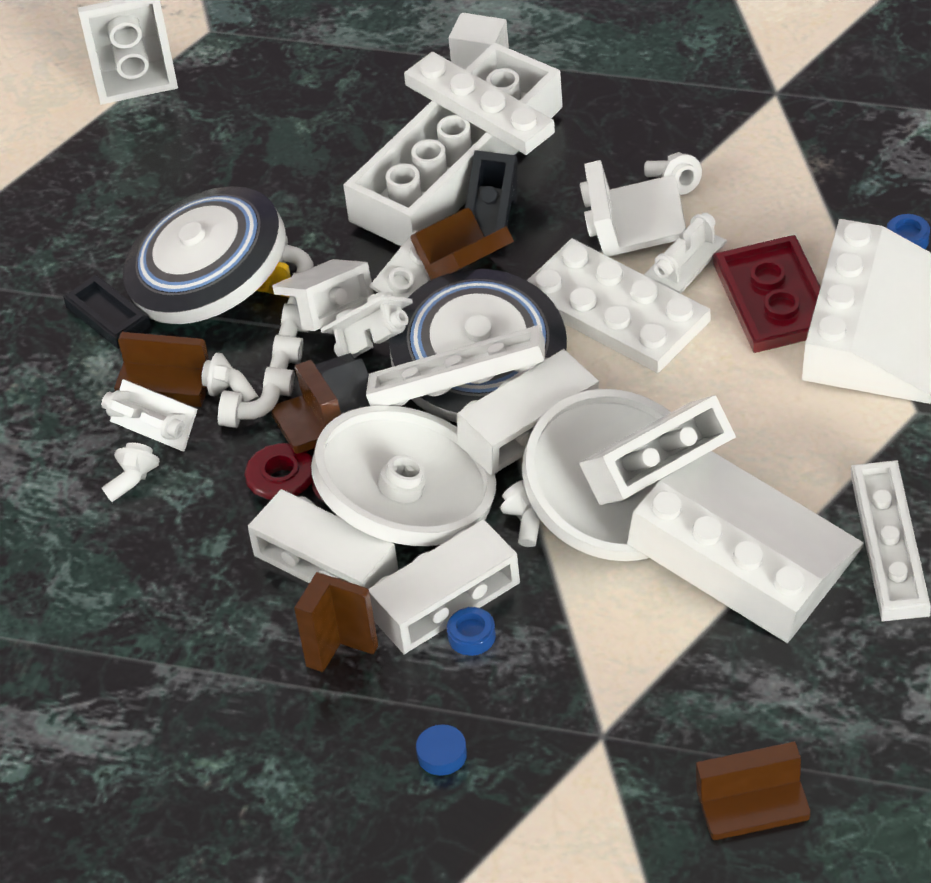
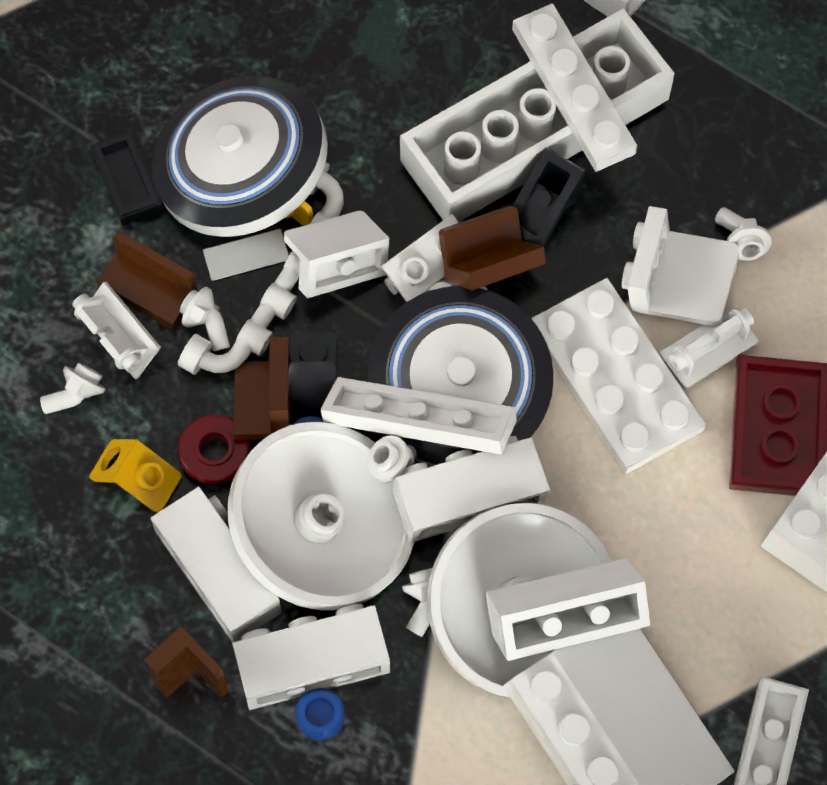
camera: 15 degrees right, 20 degrees up
(218, 505) = (137, 472): none -> yellow bracket
(242, 331) = (246, 254): none -> white sticker
(380, 316) = (365, 319): white hinge -> none
(443, 409) = (390, 458): none -> white plate

